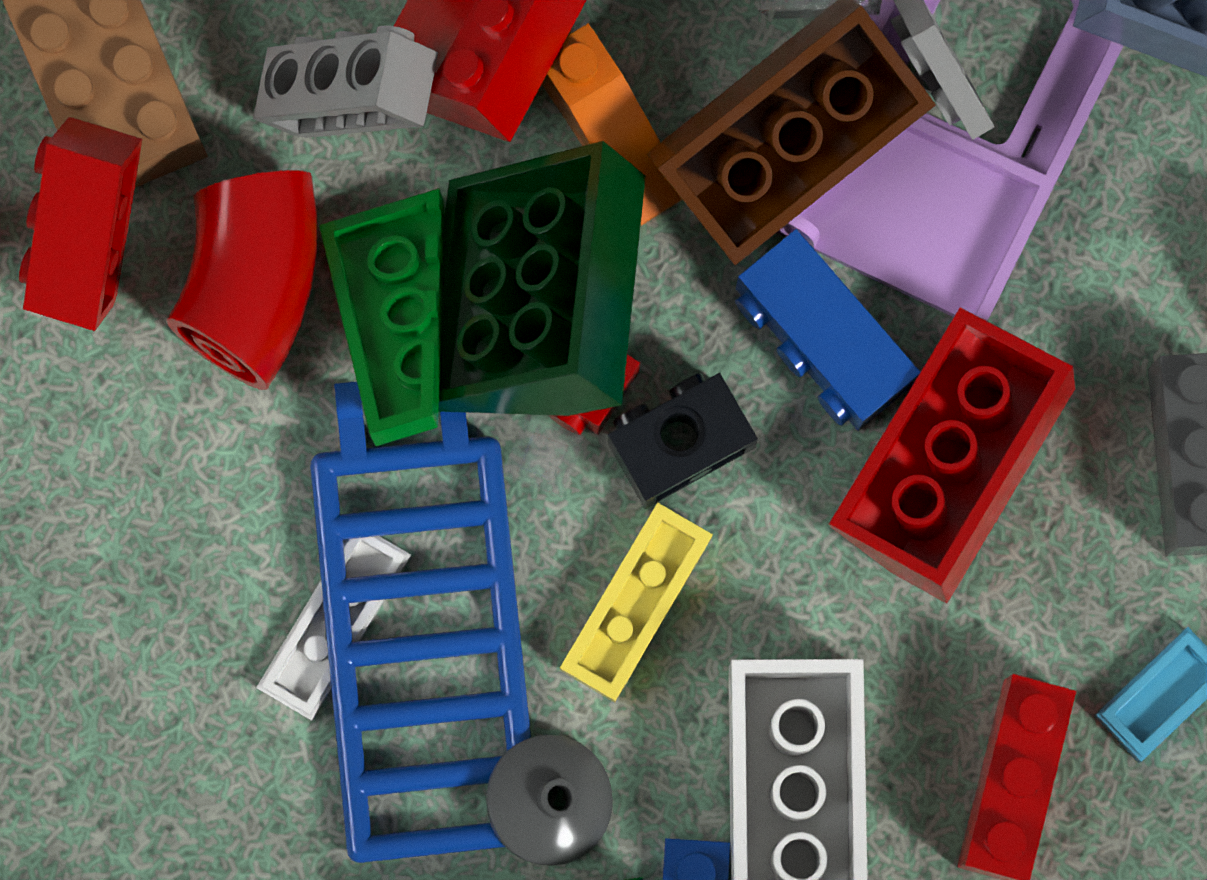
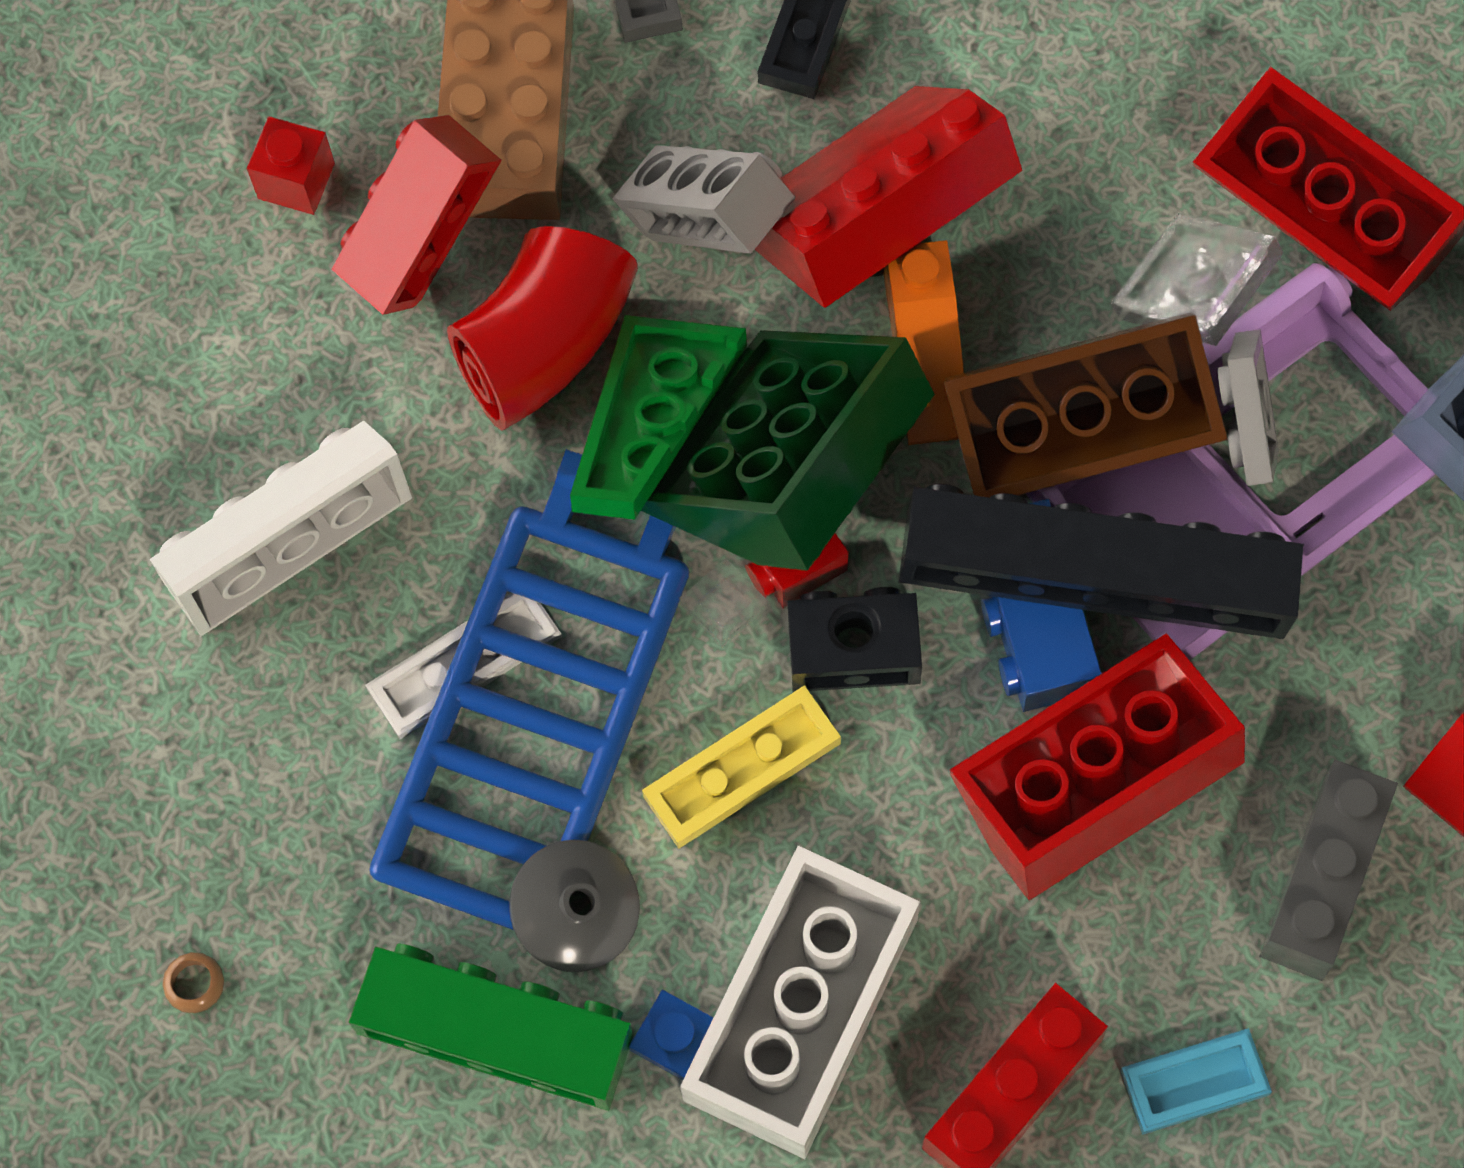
camera: 30 degrees right, 10 degrees down
(103, 576) = (282, 526): none -> white slope
(874, 270) = (1101, 561): none -> black brick

